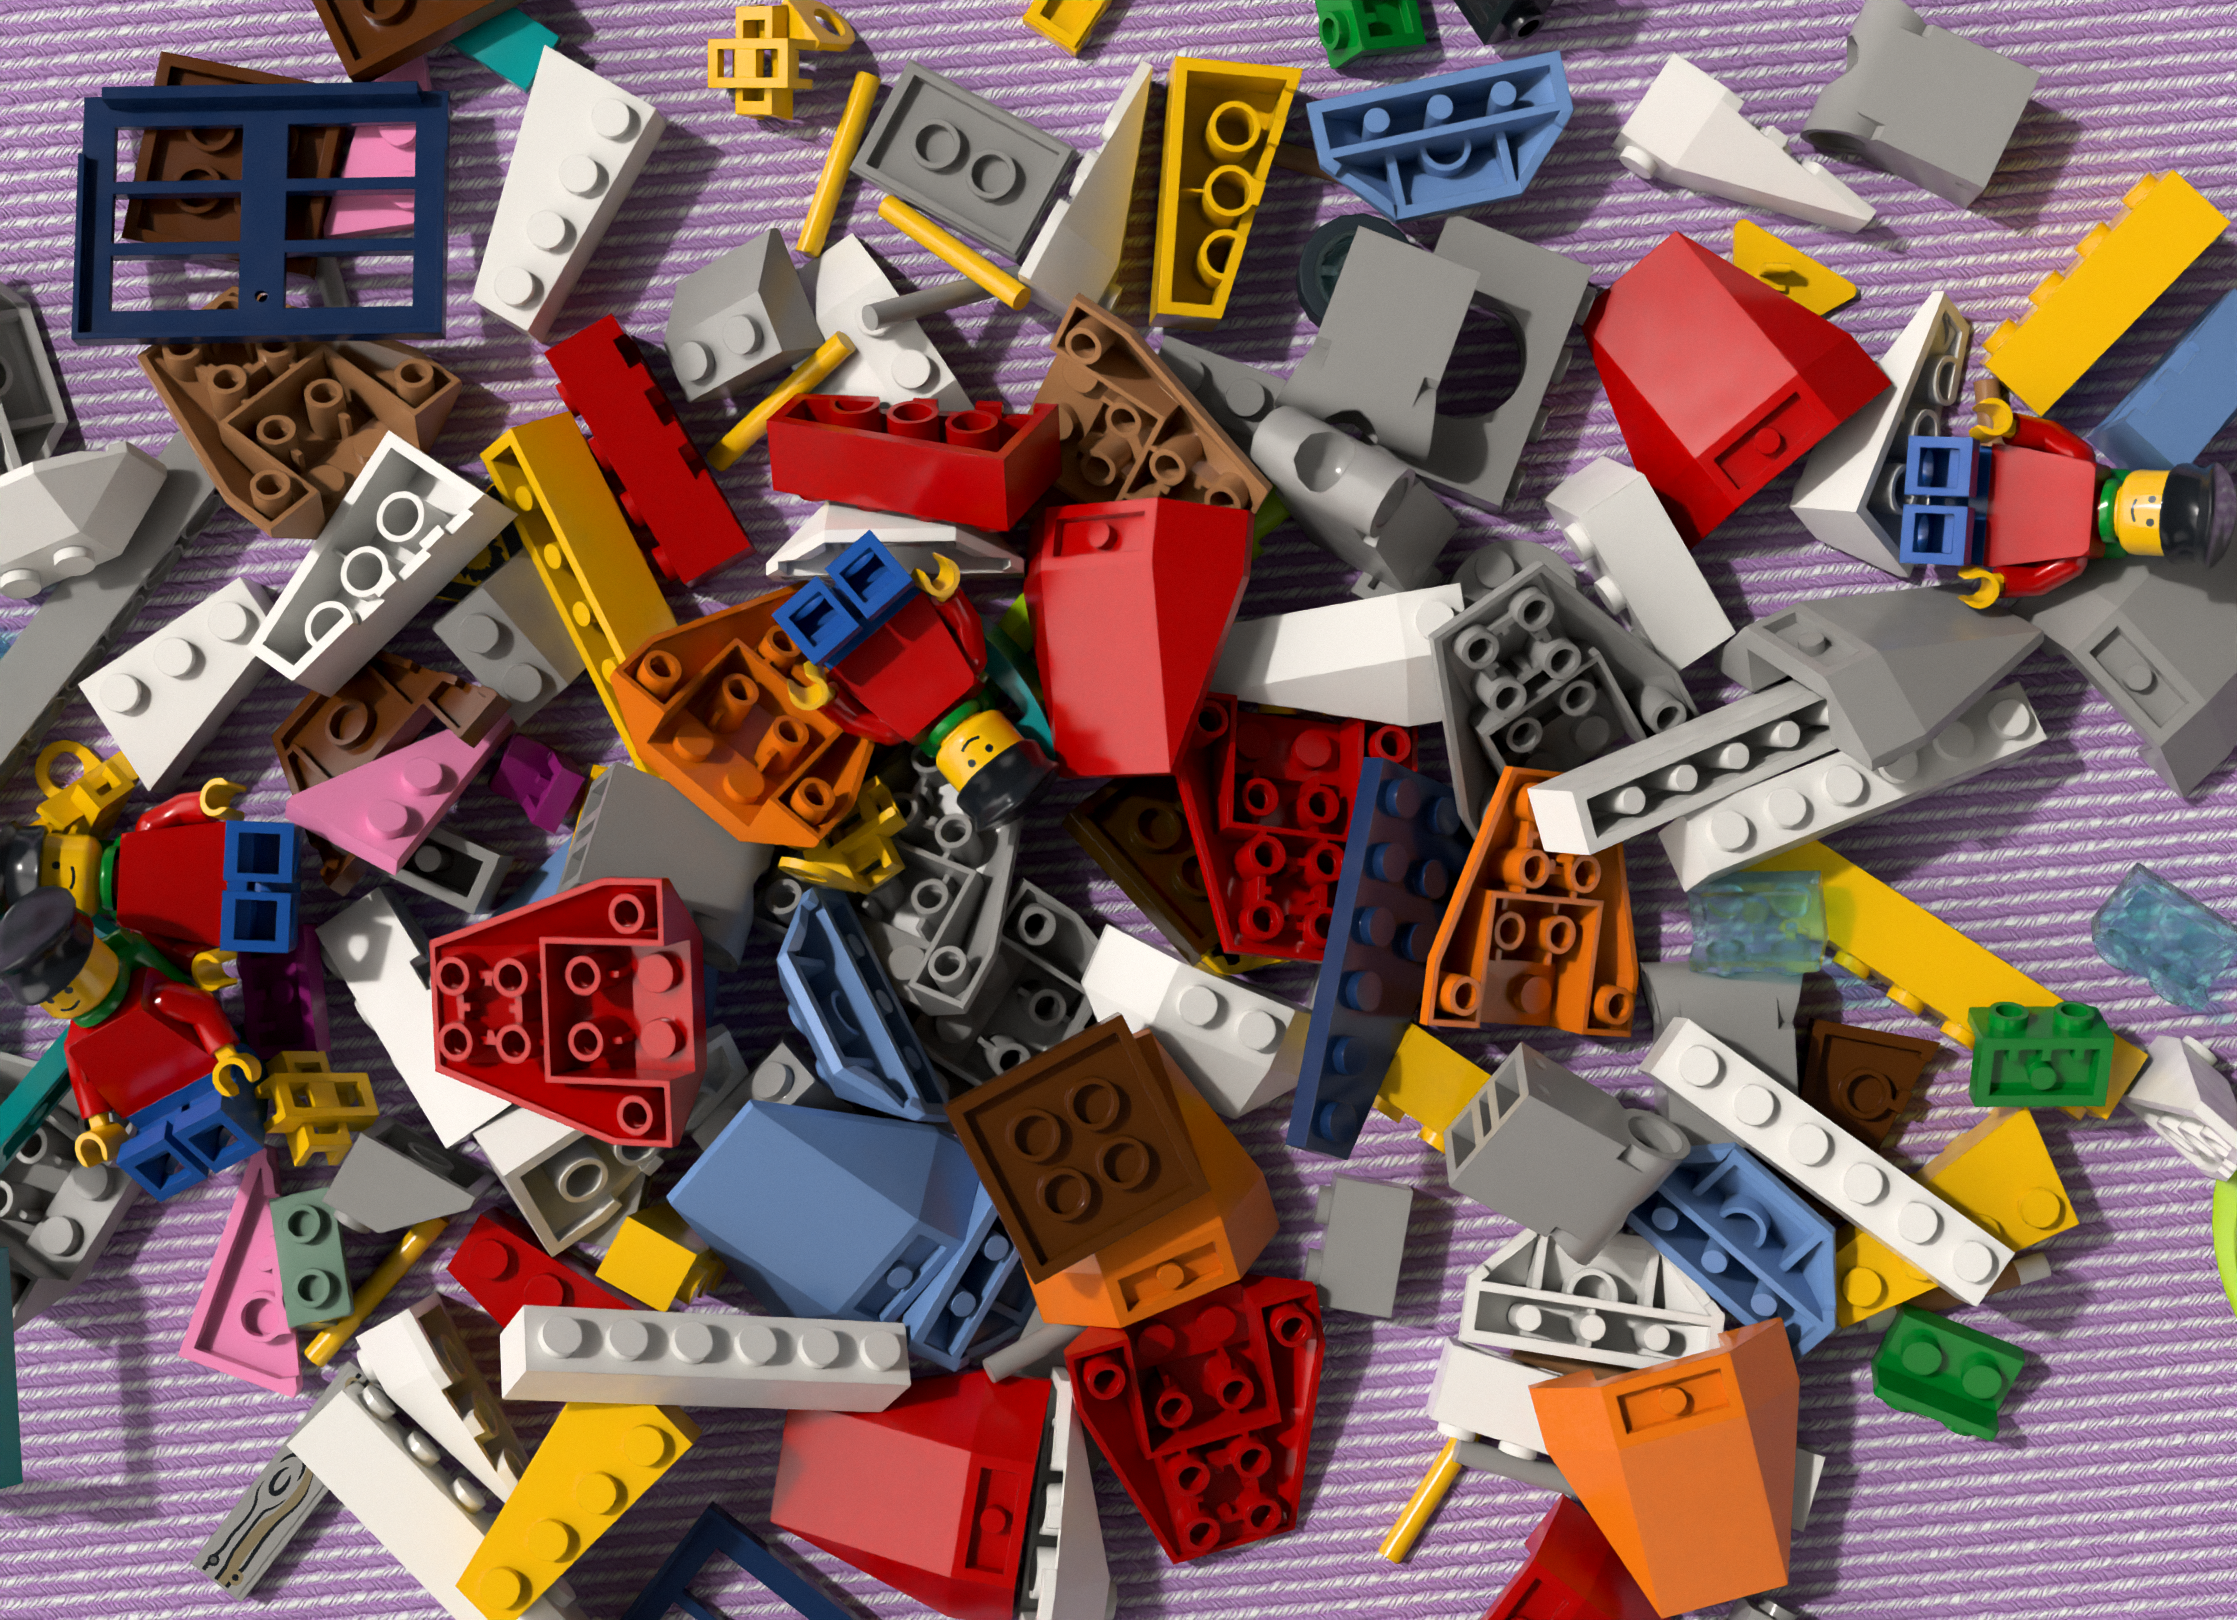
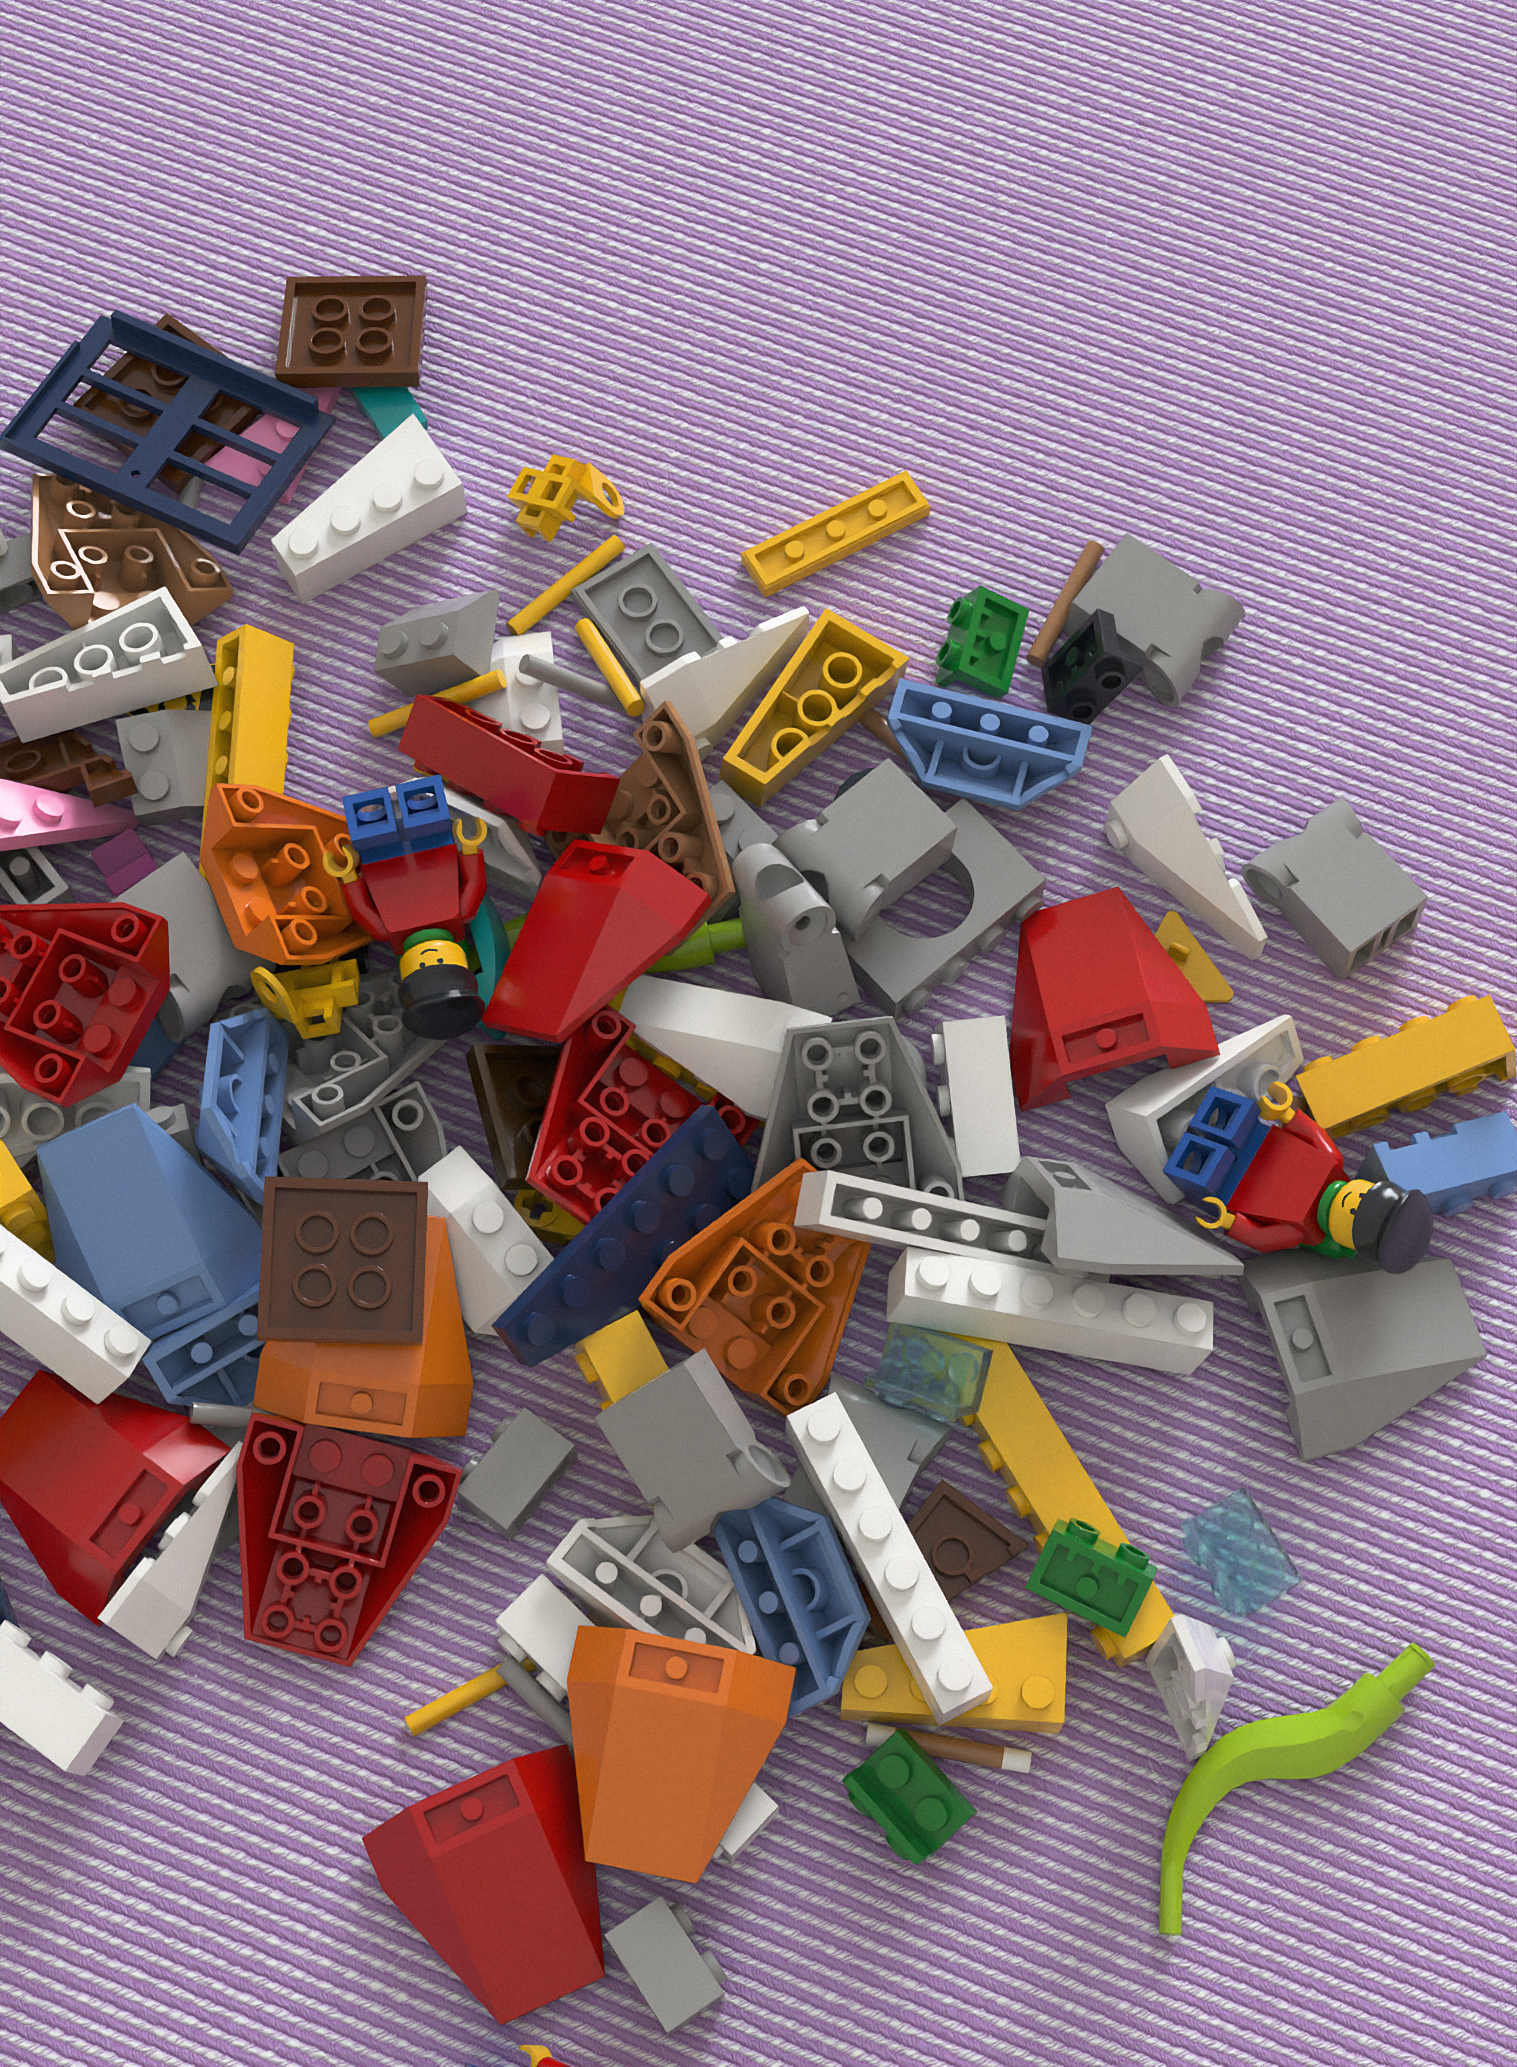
camera: 25 degrees right, 20 degrees down
(650, 451) = (330, 691): red wedge -> none

